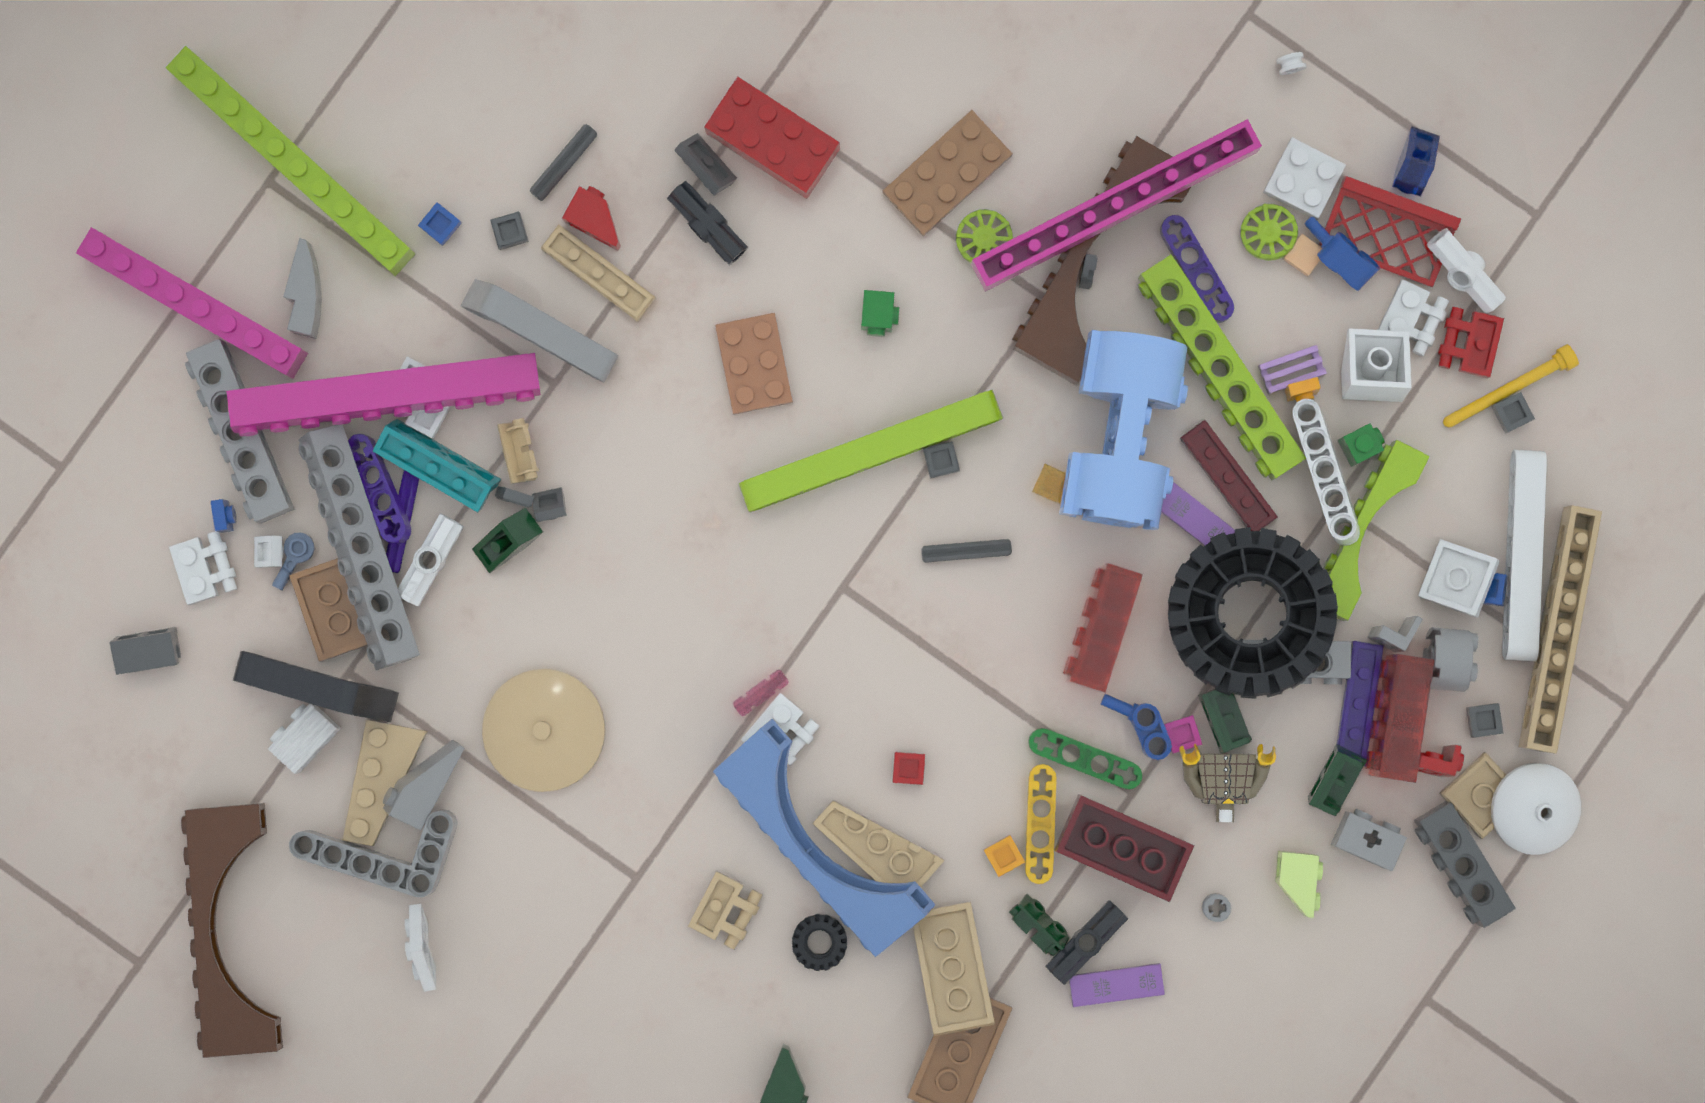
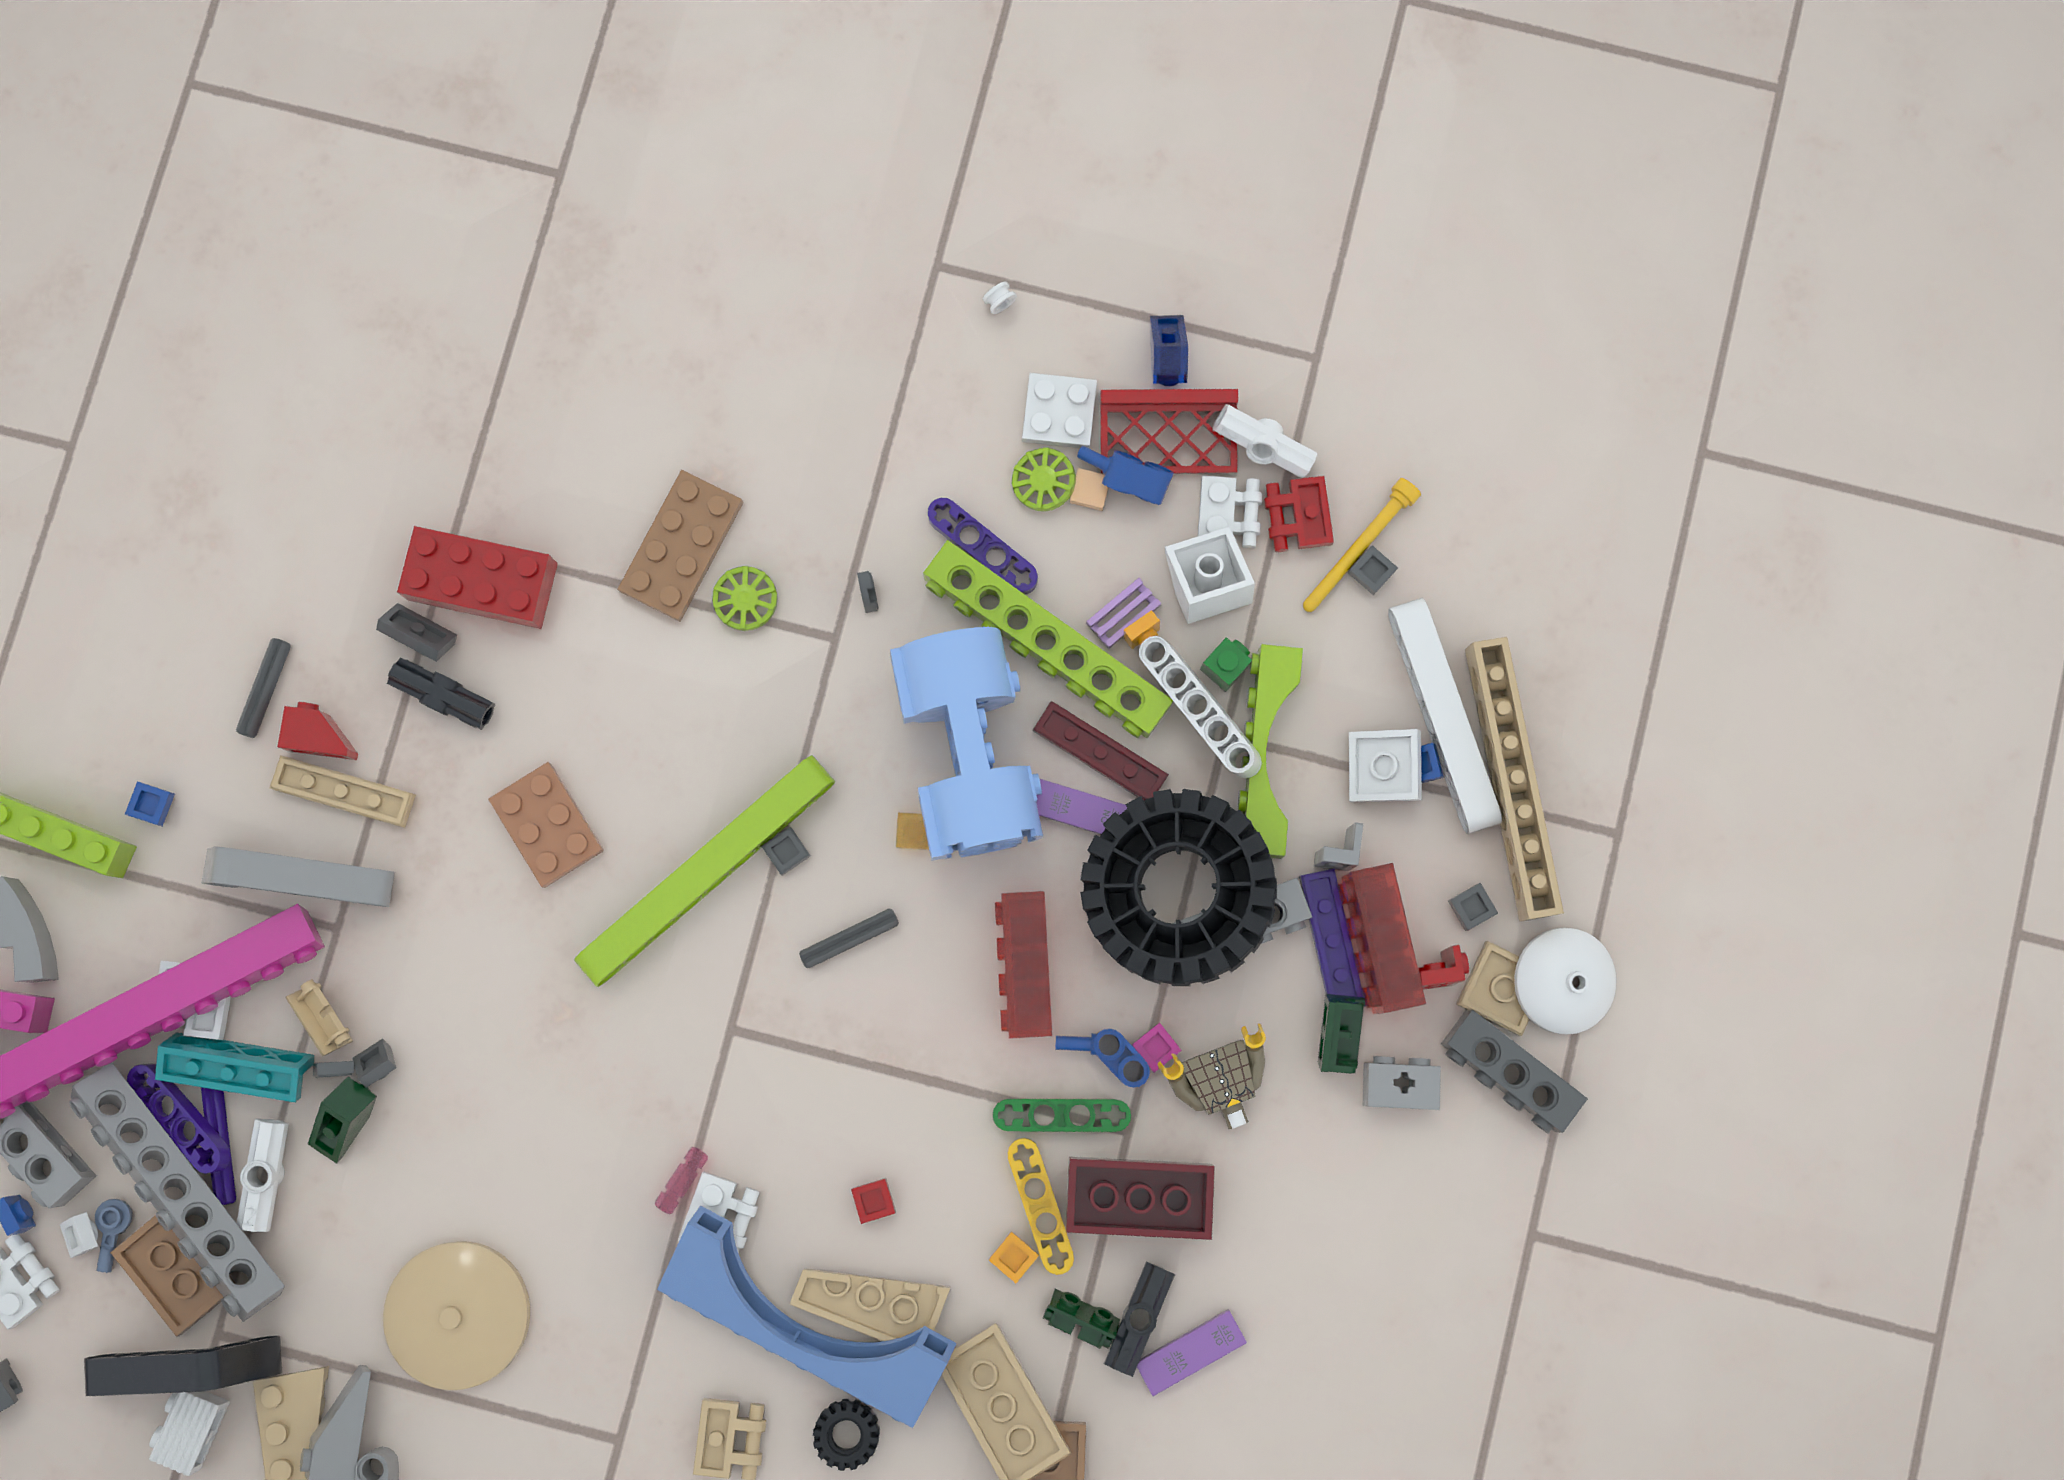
camera: 25 degrees left, 5 degrees down
(509, 230) = (230, 782): dark grey tile -> none
(879, 312) = (659, 719): green brick -> none
(1053, 331) = (886, 476): reddish brown arch -> none
(1116, 205) = (866, 510): dark pink brick -> none
(1223, 914) = (1276, 1227): light grey bush -> none
(1225, 720) = (1196, 1014): dark green hinge -> none
(1298, 879) = (1341, 1156): yellowish green slope -> none
(1452, 658) = (1412, 853): light grey brick -> none

